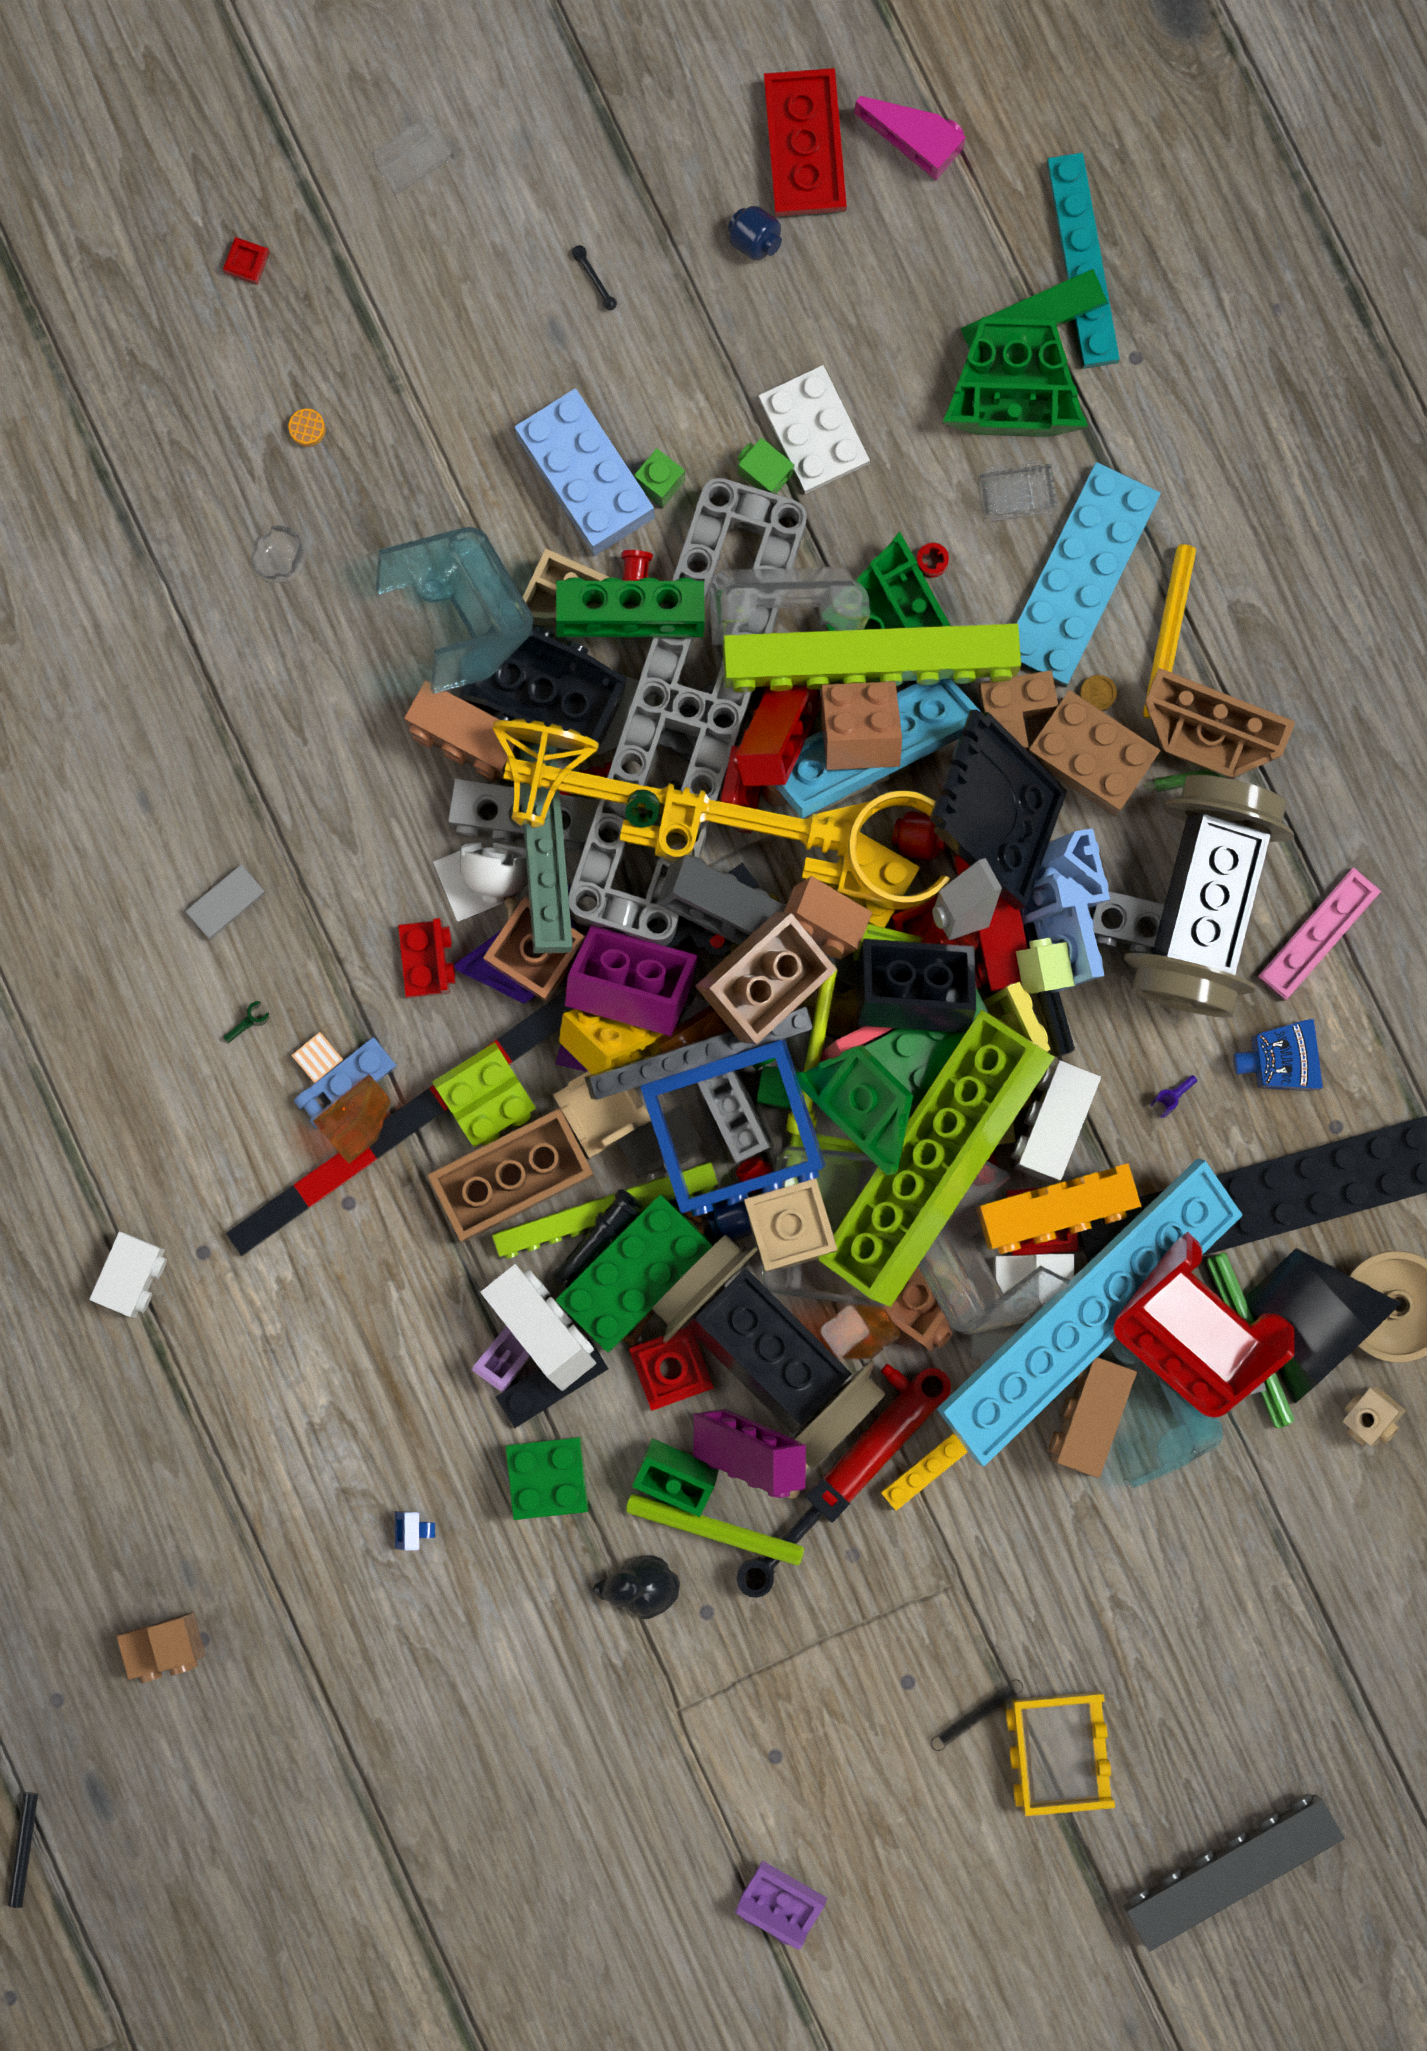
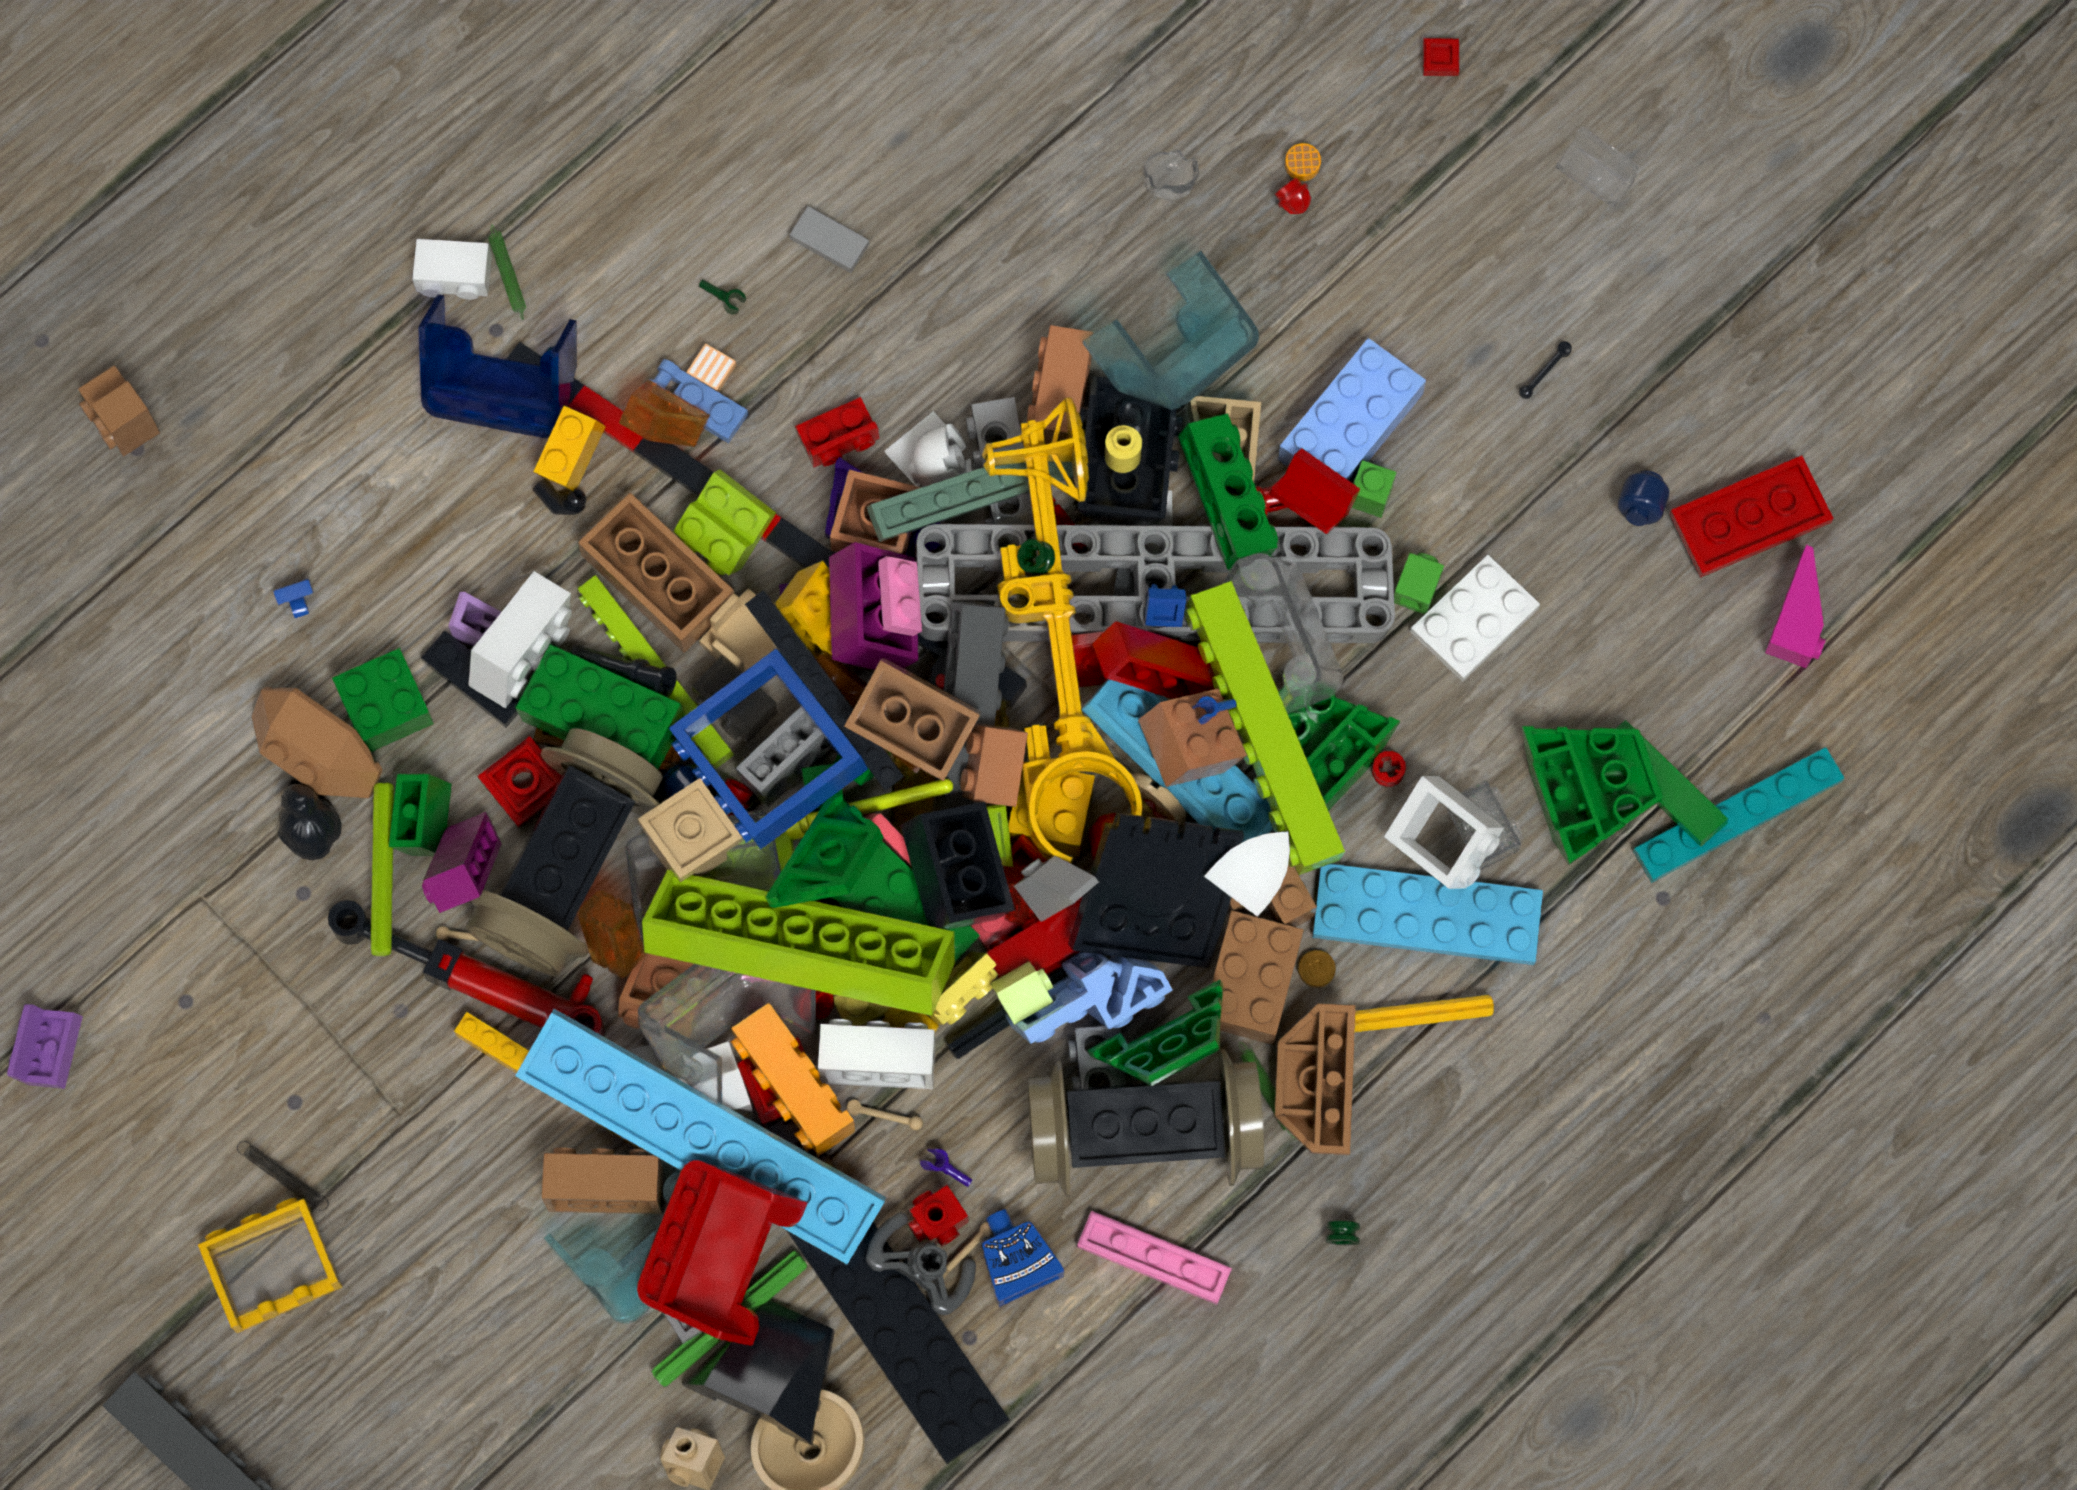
camera: 70 degrees right, 10 degrees down
(143, 1223) = (506, 272): none -> bright green piece
(267, 1273) = (491, 389): none -> clear blue windscreen
(341, 447) = (1294, 197): none -> red plate
(357, 1219) = (569, 448): none -> yellow brick
(404, 1244) = (560, 504): none -> black arm
(554, 702) = (1123, 449): none -> light yellow brick
(570, 1560) = (313, 744): none -> medium nougat wedge
(631, 950) = (900, 596): none -> bright pink plate
(651, 530) = (1315, 492): none -> red panel
(724, 706) = (1165, 606): none -> blue tile
(847, 694) = (1212, 707): none -> blue hand
(907, 778) = (1158, 802): none -> tan tile
(1006, 503) = (1417, 812): none -> white window
(1007, 714) = (1253, 870): none -> white sticker
(1088, 1160) = (854, 1108): none -> tan hinge
(1152, 845) = (1172, 1044): none -> green wedge
(1209, 1122) = (943, 1204): none -> red brick
(1262, 1147) = (921, 1266): none -> dark grey piece
(1270, 1130) = (985, 1231): none -> tan hinge
(1355, 755) = (1342, 1233): none -> dark green bush

